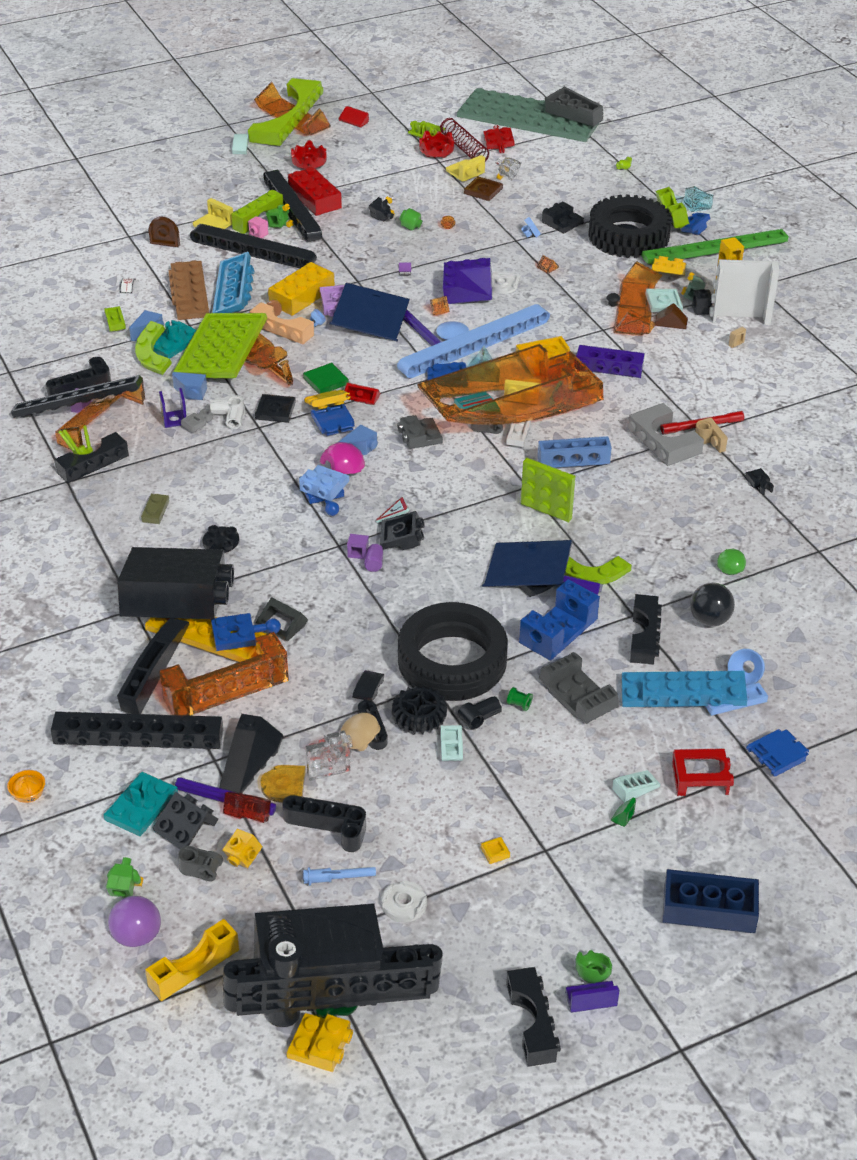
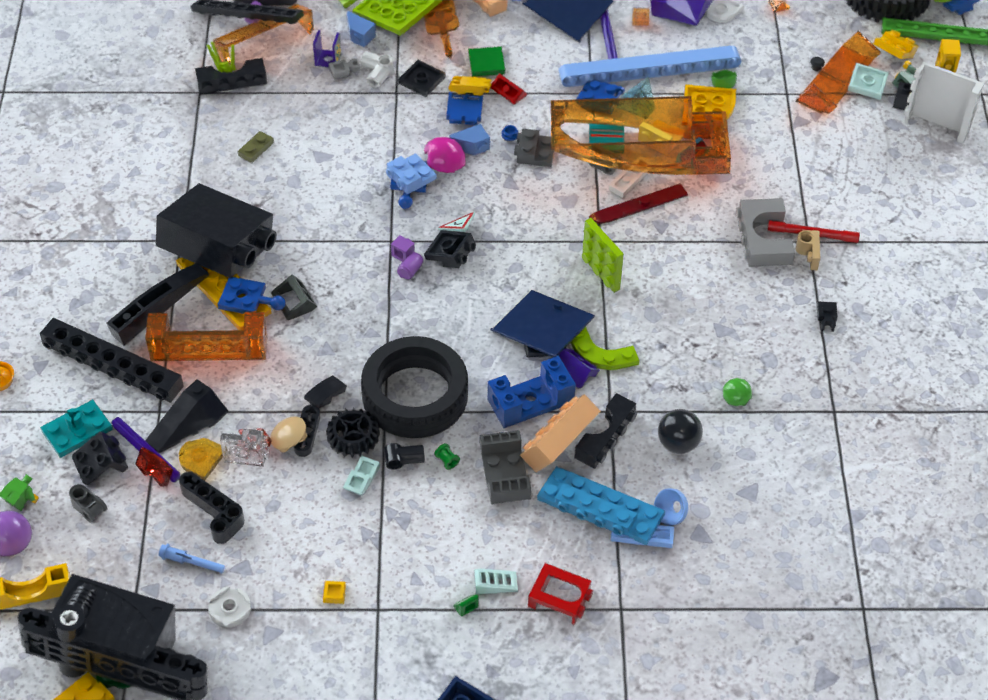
camera: 25 degrees right, 10 degrees up
(221, 538) = (291, 198): black dish -> none
(242, 848) = (124, 504): yellow brick -> none
(388, 426) = (509, 133): none -> blue plate
(451, 329) = (637, 46): light blue dish -> none
(546, 331) = (724, 79): none -> bright green hair
(559, 432) = (639, 204): none -> dark red piece
(575, 452) = (661, 222): medium blue brick -> none
(611, 361) = (766, 133): dark purple brick -> none
(611, 641) = (559, 432): none -> light nougat piece
(672, 318) = (863, 104): reddish brown slope -> none
(737, 337) = (913, 148): tan tile -> none
(779, 751) = (647, 602): blue plate -> none

